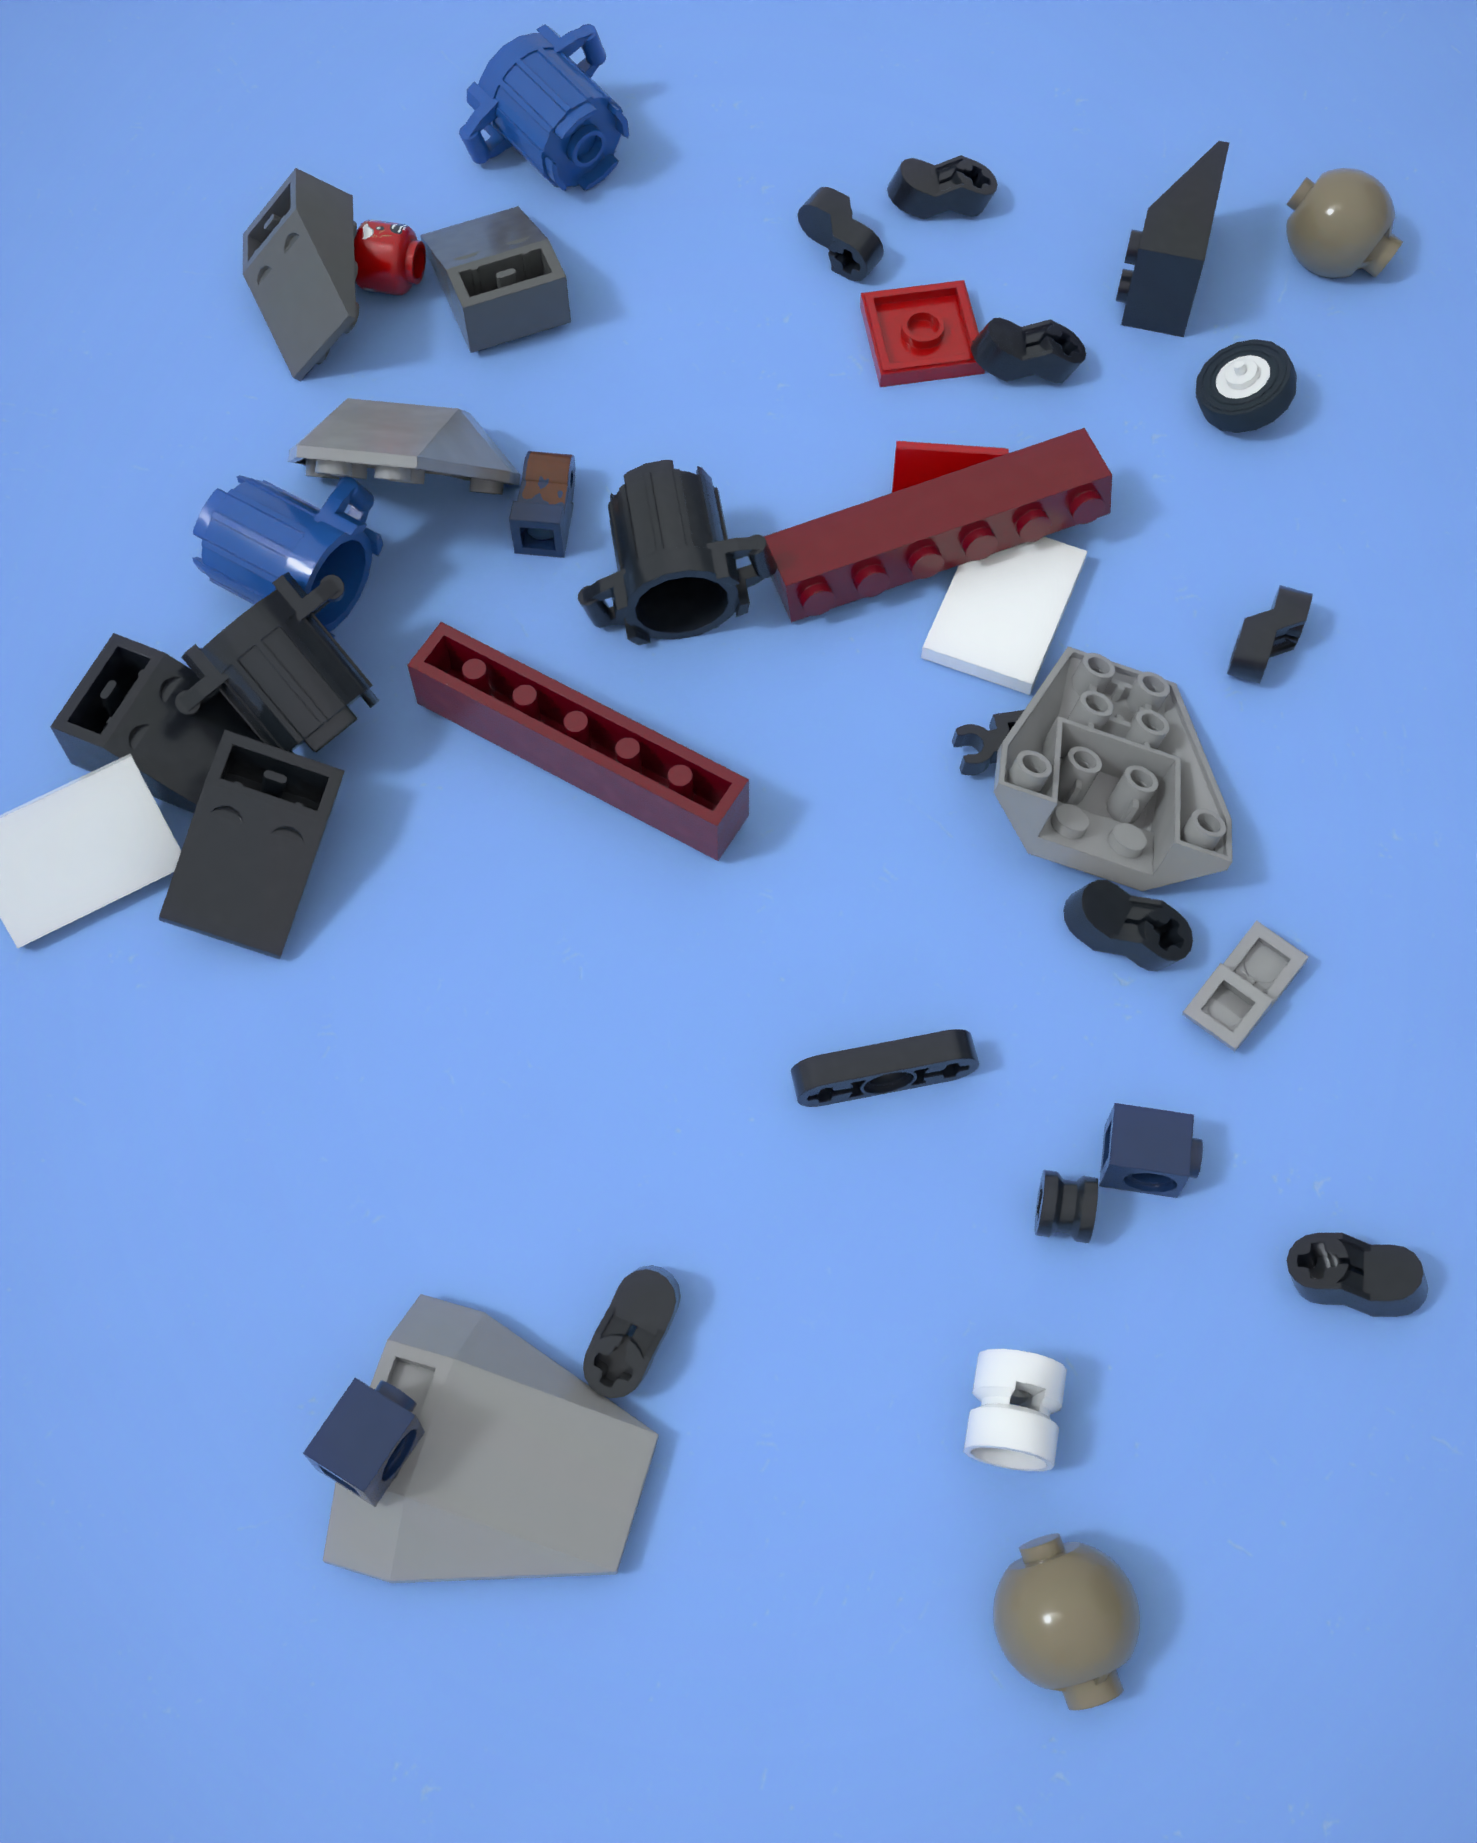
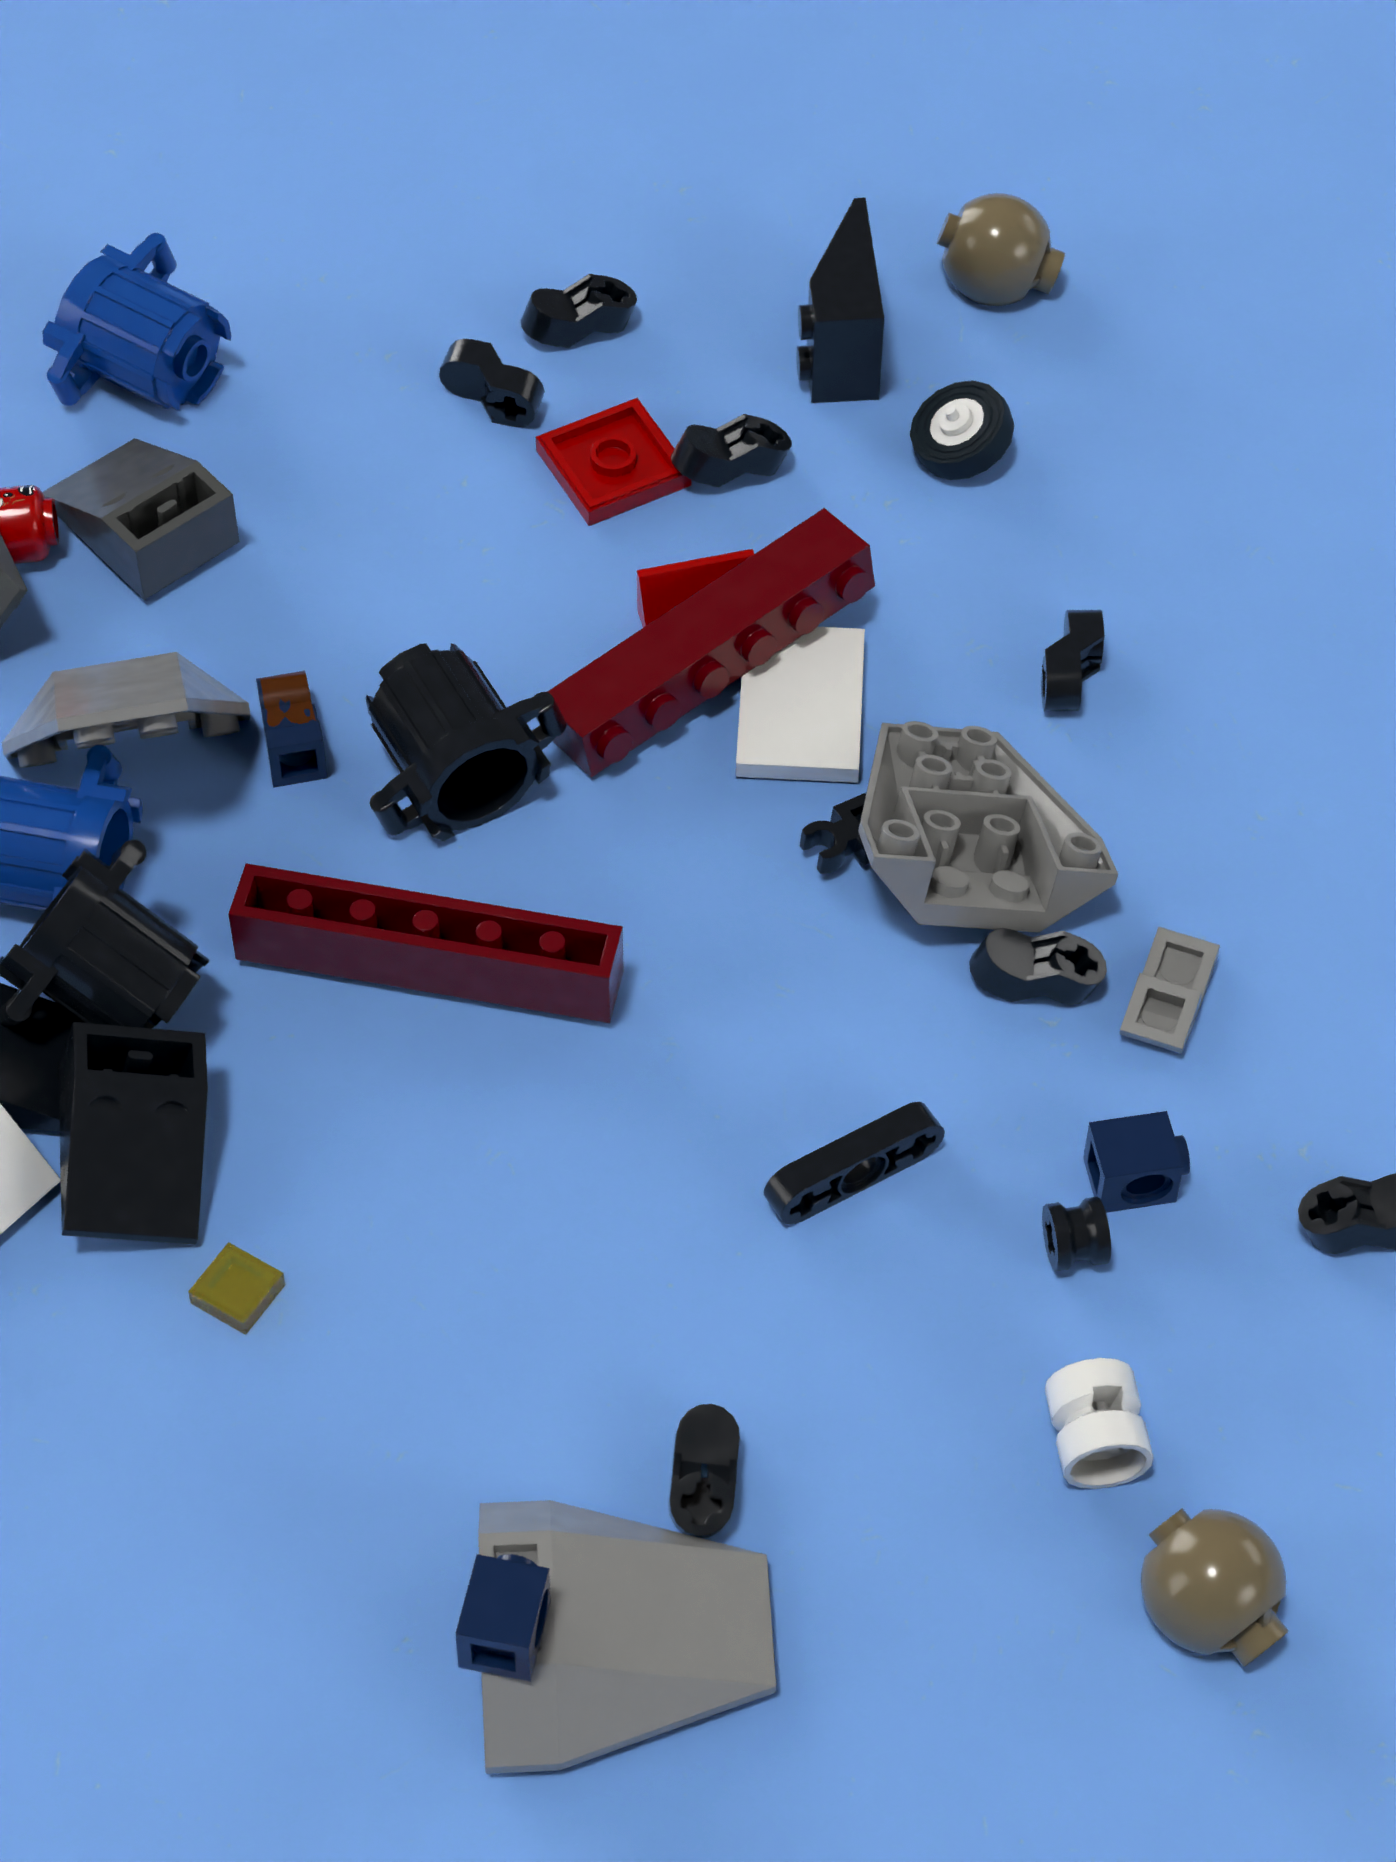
camera: 20 degrees left, 10 degrees down
(297, 1012) = (236, 1288): none -> clear yellow tile

